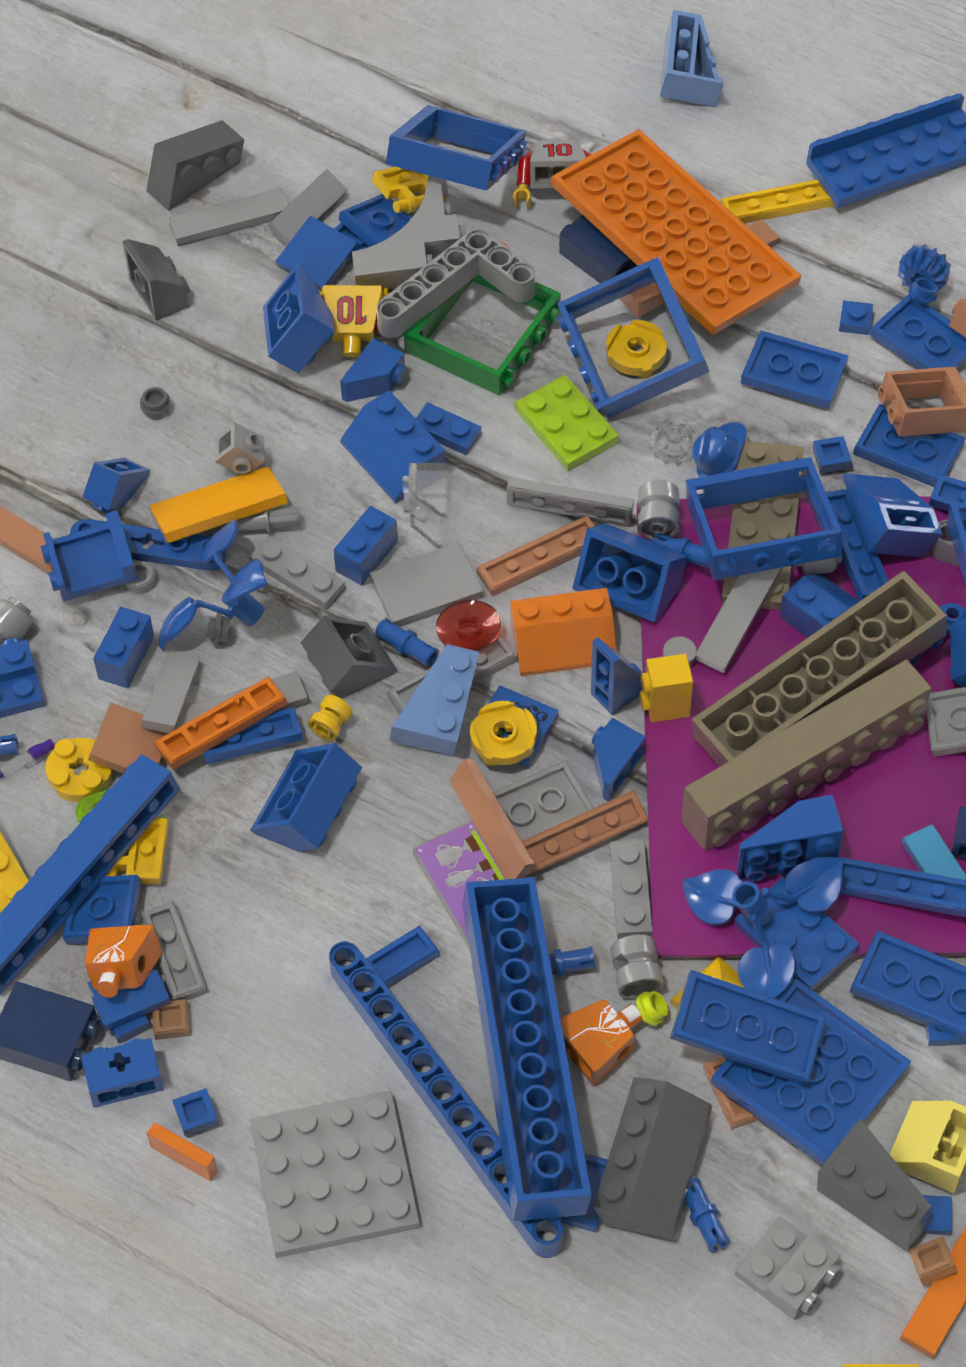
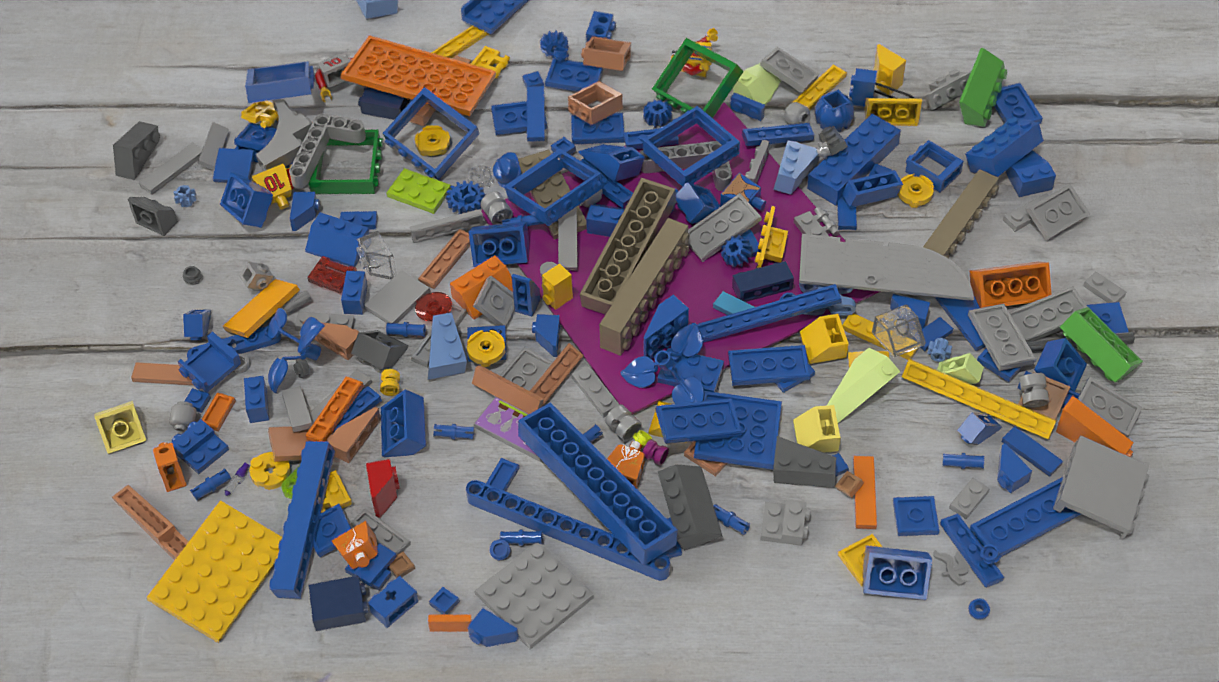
camera: 30 degrees left, 5 degrees down
(45, 605) = (198, 399): none -> blue plate
(63, 638) = (218, 410): none -> orange tile
(211, 881) = (382, 484): none -> red slope
(218, 270) = (184, 196): none -> medium blue gear
(224, 775) = (352, 435): none -> nougat slope
(232, 1195) = (491, 630): none -> blue slope
(295, 602) = (338, 339): none -> nougat slope
(326, 1073) = (499, 549): none -> blue plate
(344, 502) = (329, 278): none -> clear red plate
(369, 1071) = (522, 537): none -> blue pin
(375, 845) = (453, 431): none -> blue pin
(561, 665) = (495, 301): none -> light grey plate
(627, 466) = (465, 197): none -> blue gear
(656, 1040) = (655, 452): none -> magenta wheel
(804, 247) = (490, 56): none -> yellow plate
(820, 377) = (535, 114): none -> blue tile

